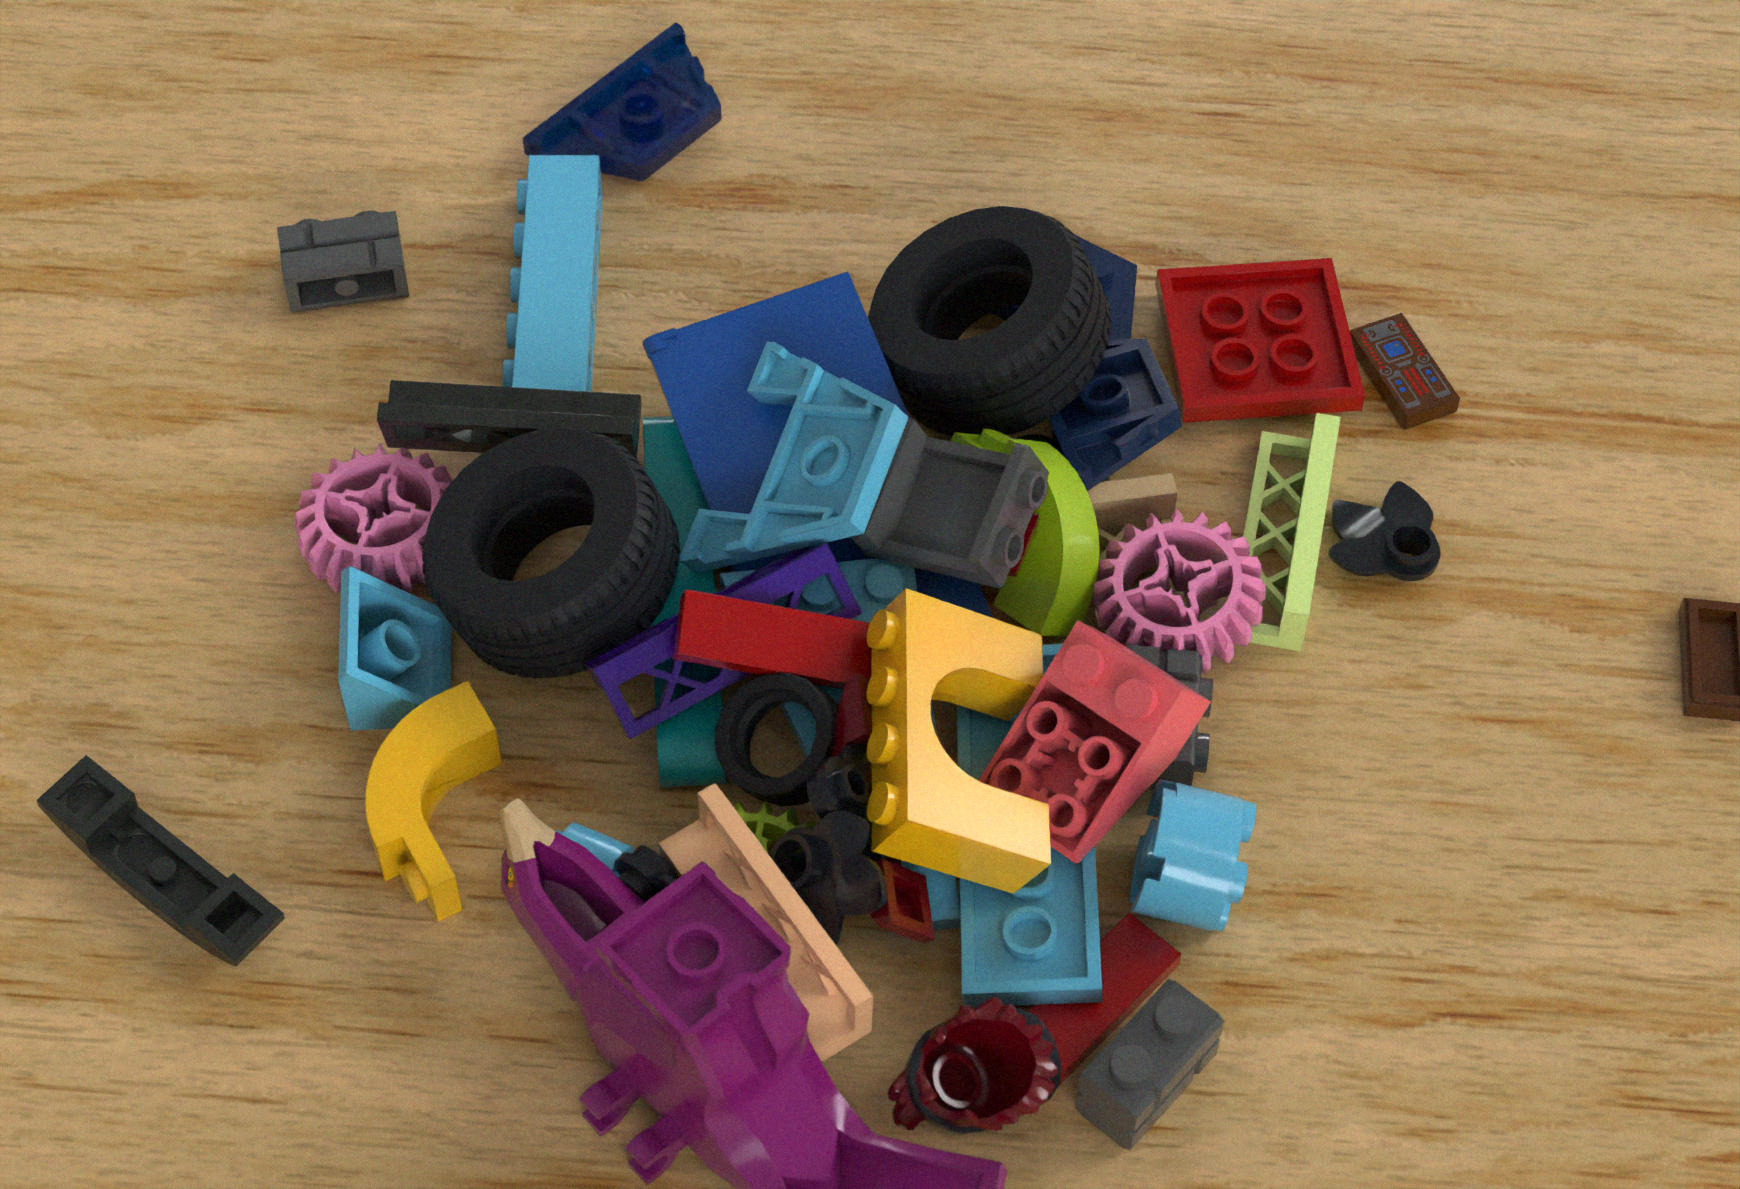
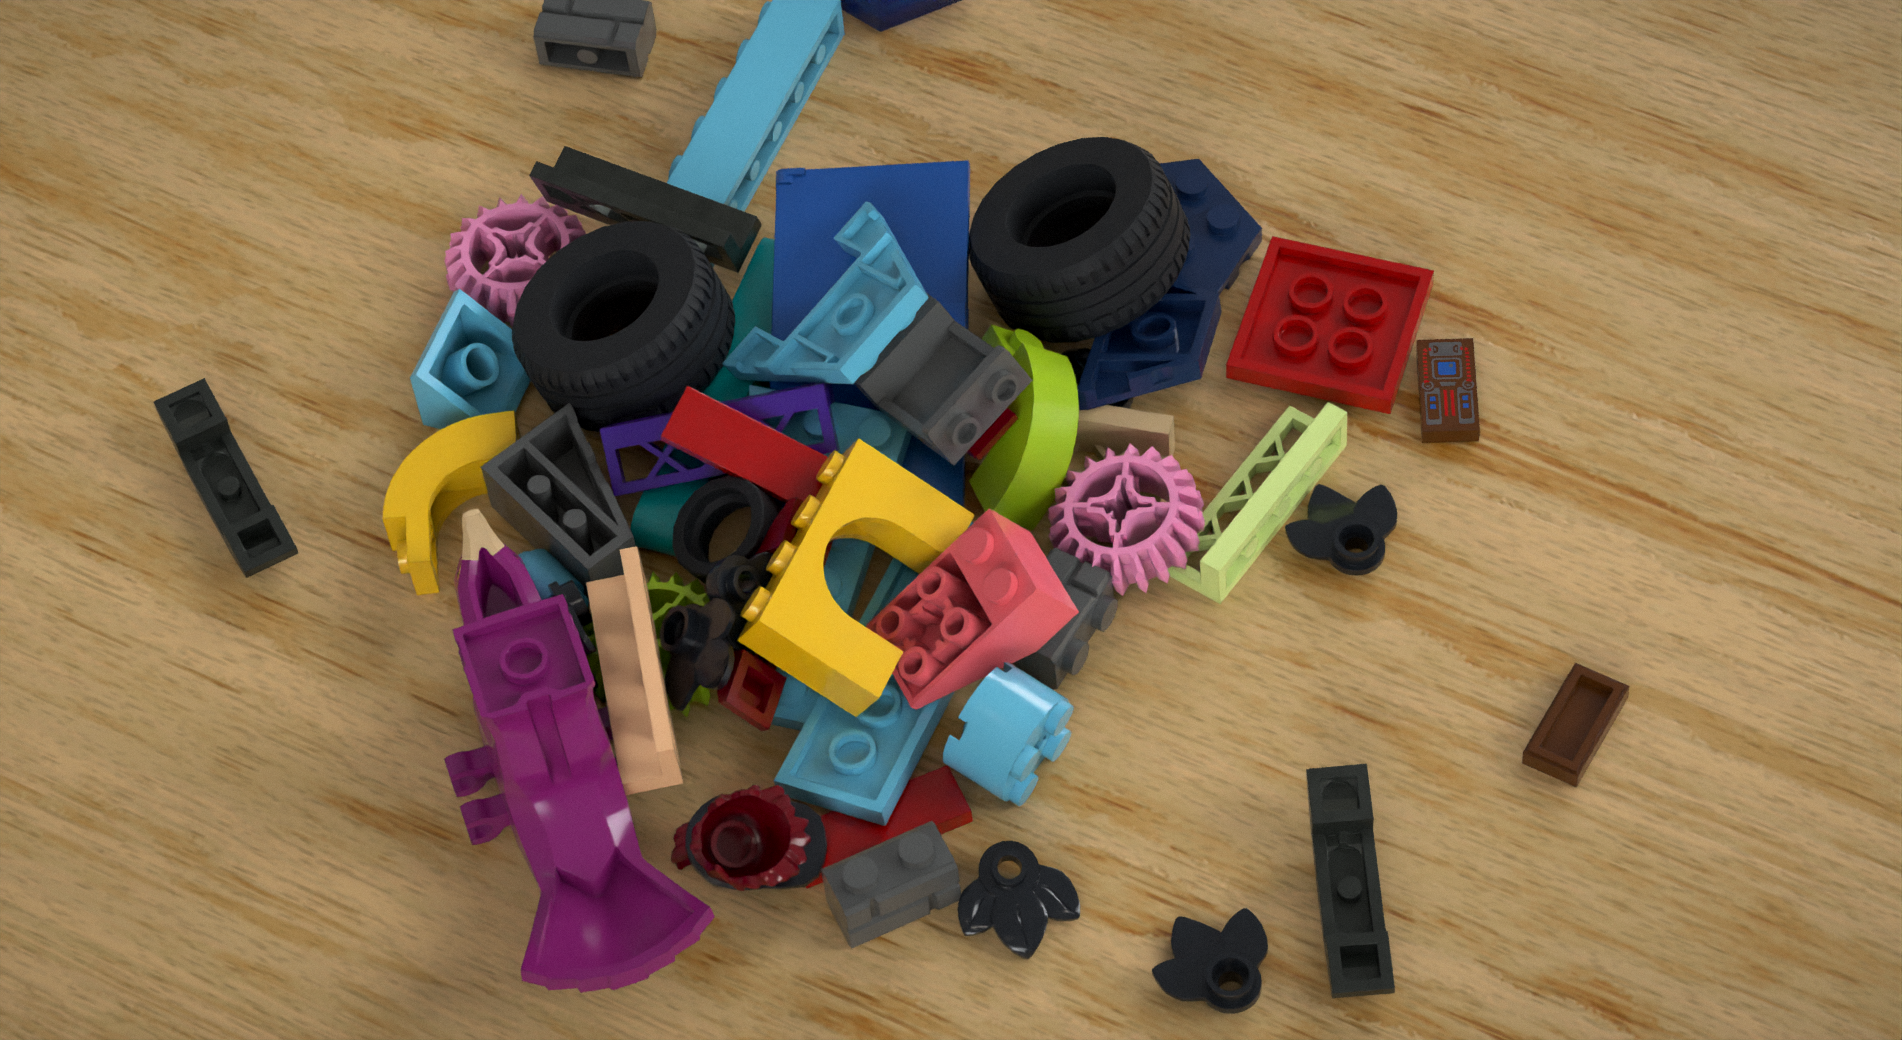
camera: 30 degrees right, 0 degrees up
(575, 764) = (559, 498): none -> dark grey wedge
(1286, 1040) = (1019, 905): none -> black plate
(1512, 1021) = (1210, 958): none -> black plate
(1602, 900) = (1348, 881): none -> pearl dark grey slope

